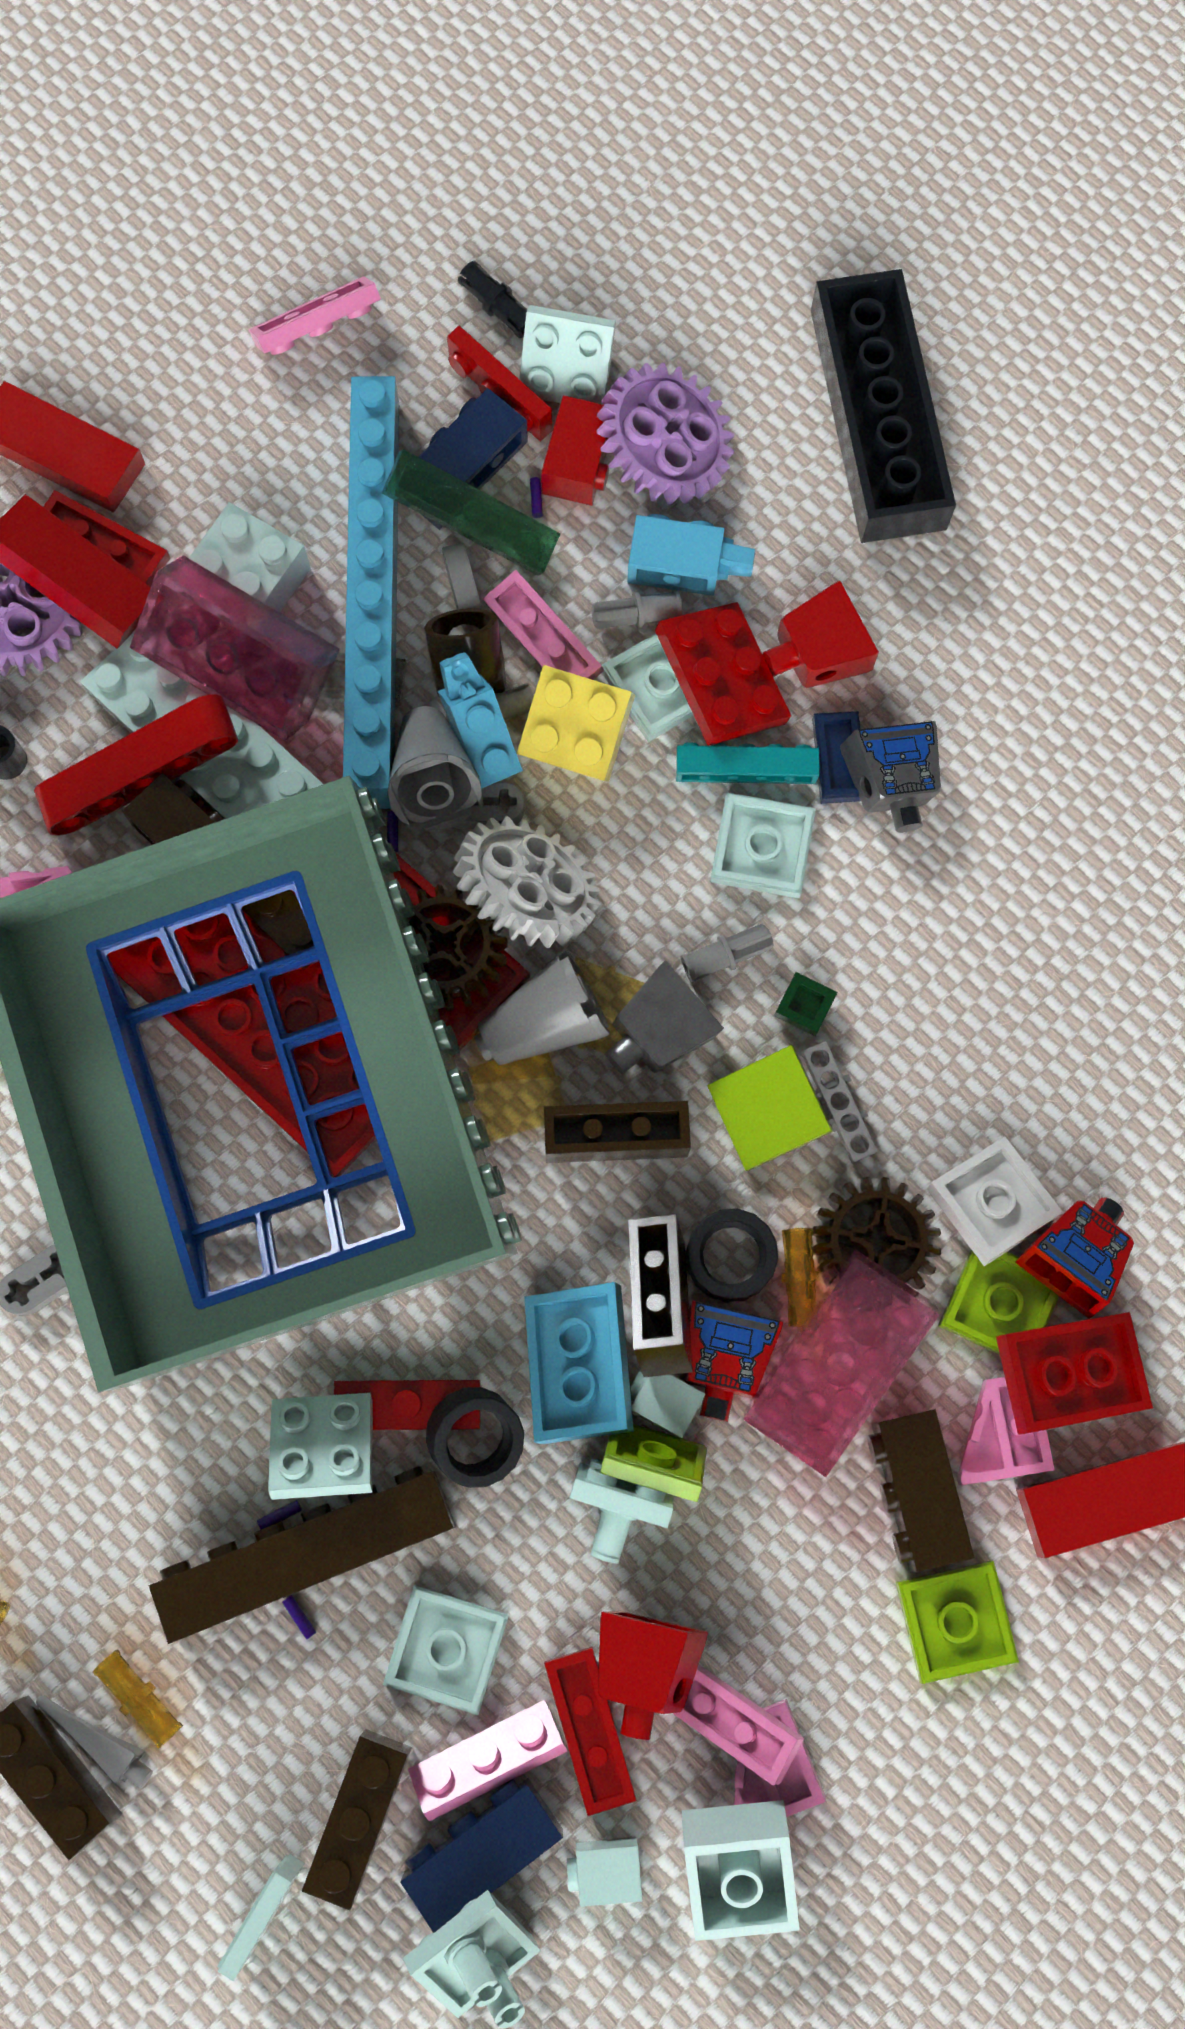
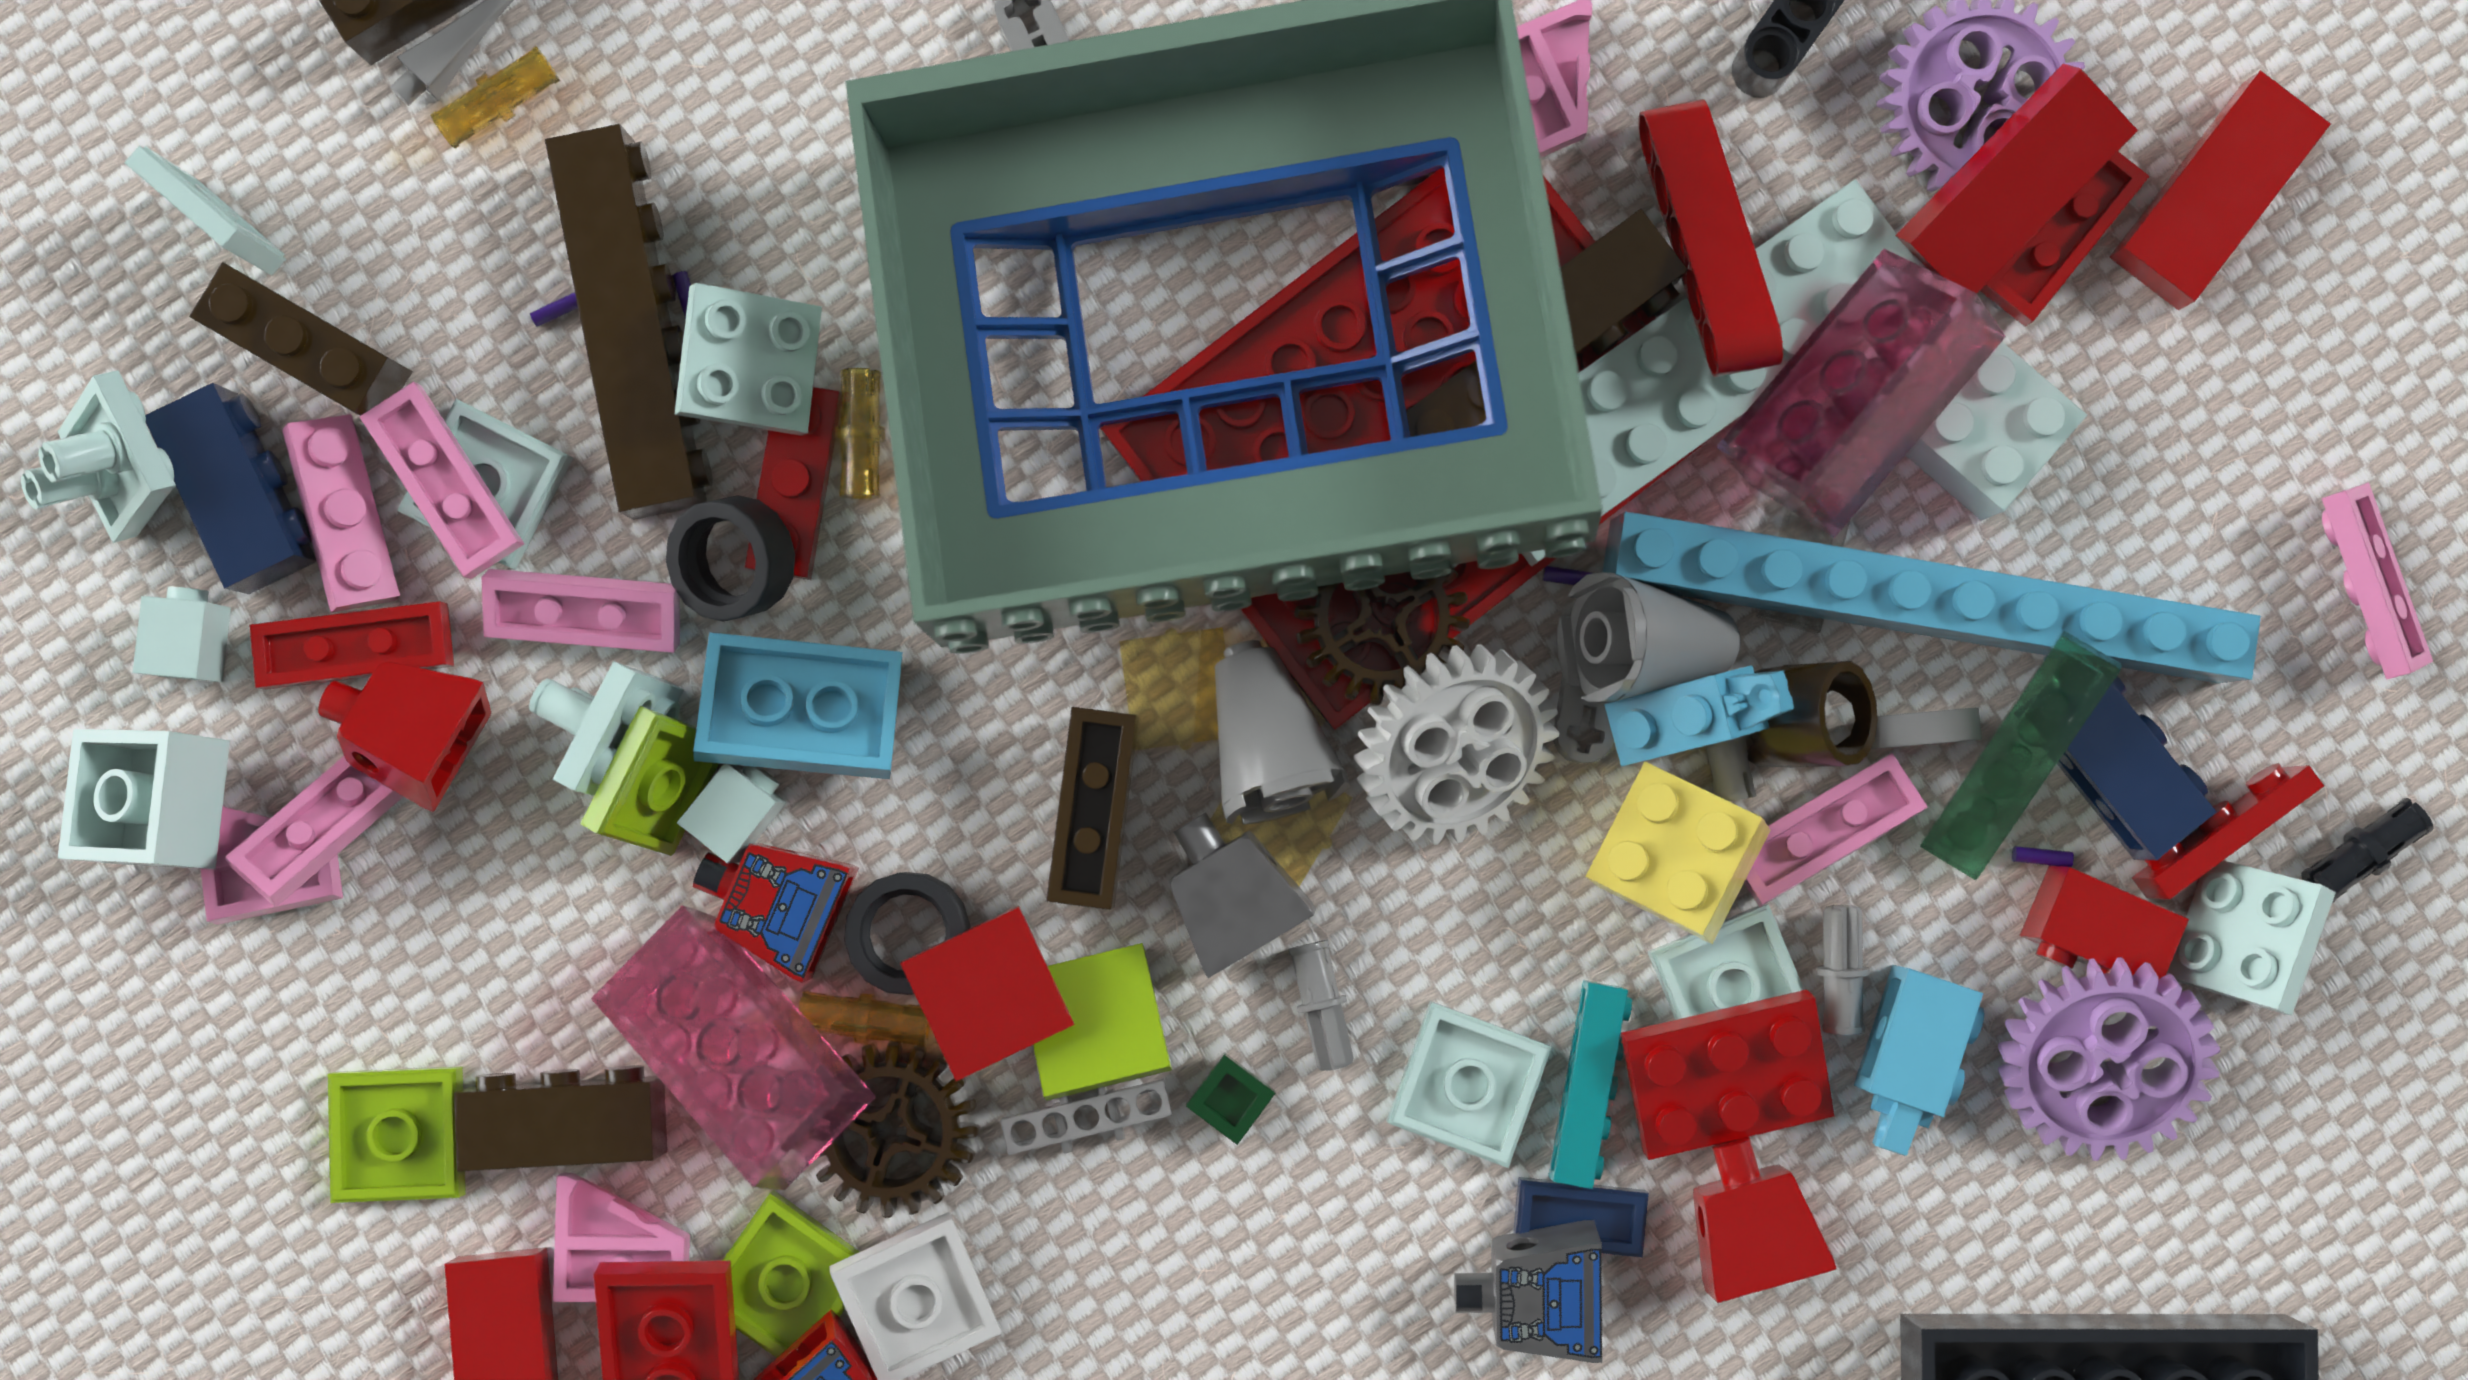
camera: 100 degrees right, 10 degrees up
(364, 1359) = (860, 433): none -> clear yellow pin
(449, 1677) = (442, 480): none -> bright pink plate
(533, 1550) = (580, 610): none -> bright pink plate
(659, 1296) = (860, 825): dark brown brick -> none
(764, 1183) = (987, 993): none -> red tile

